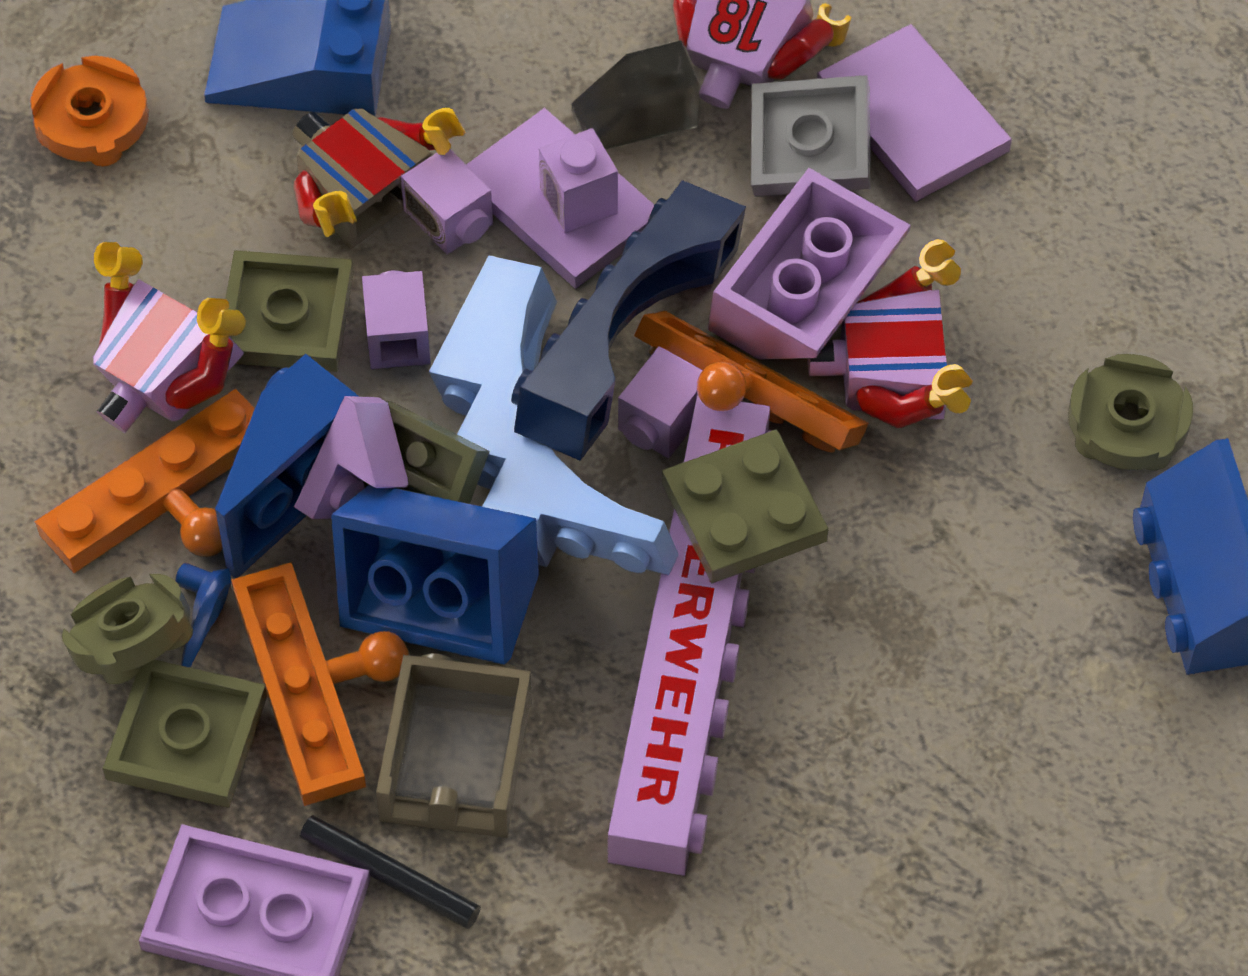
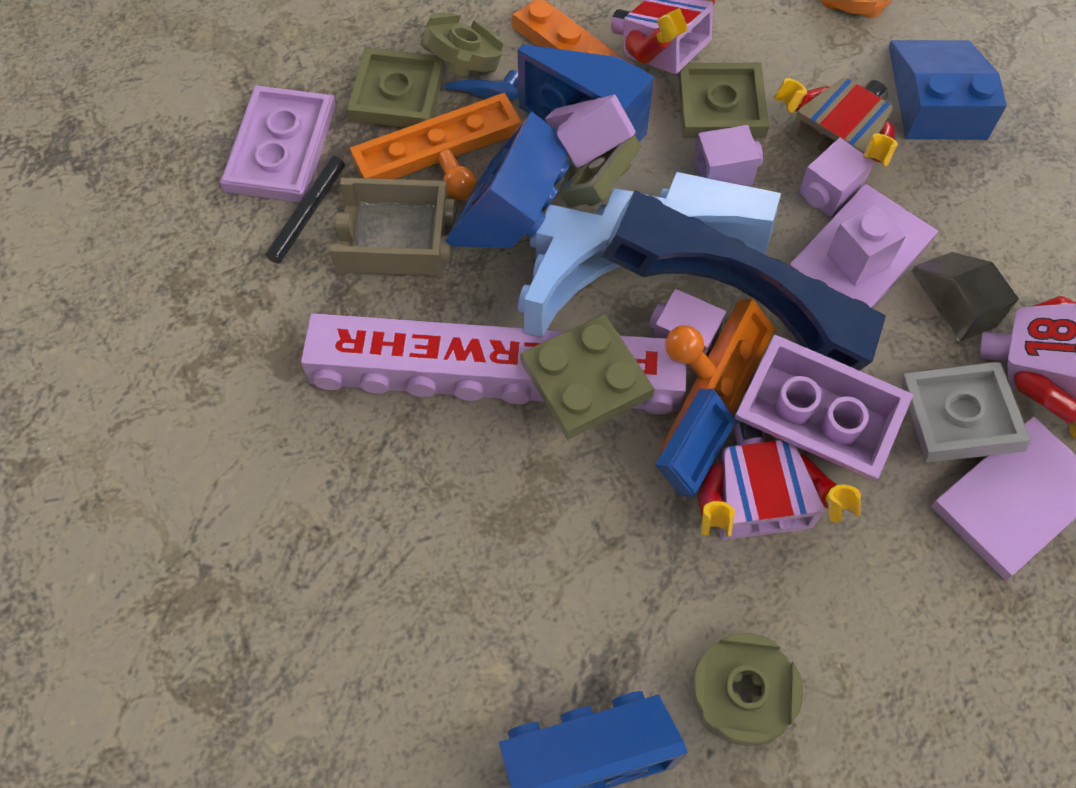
camera: 85 degrees right, 5 degrees up
(838, 405) = (696, 442): none -> blue tile

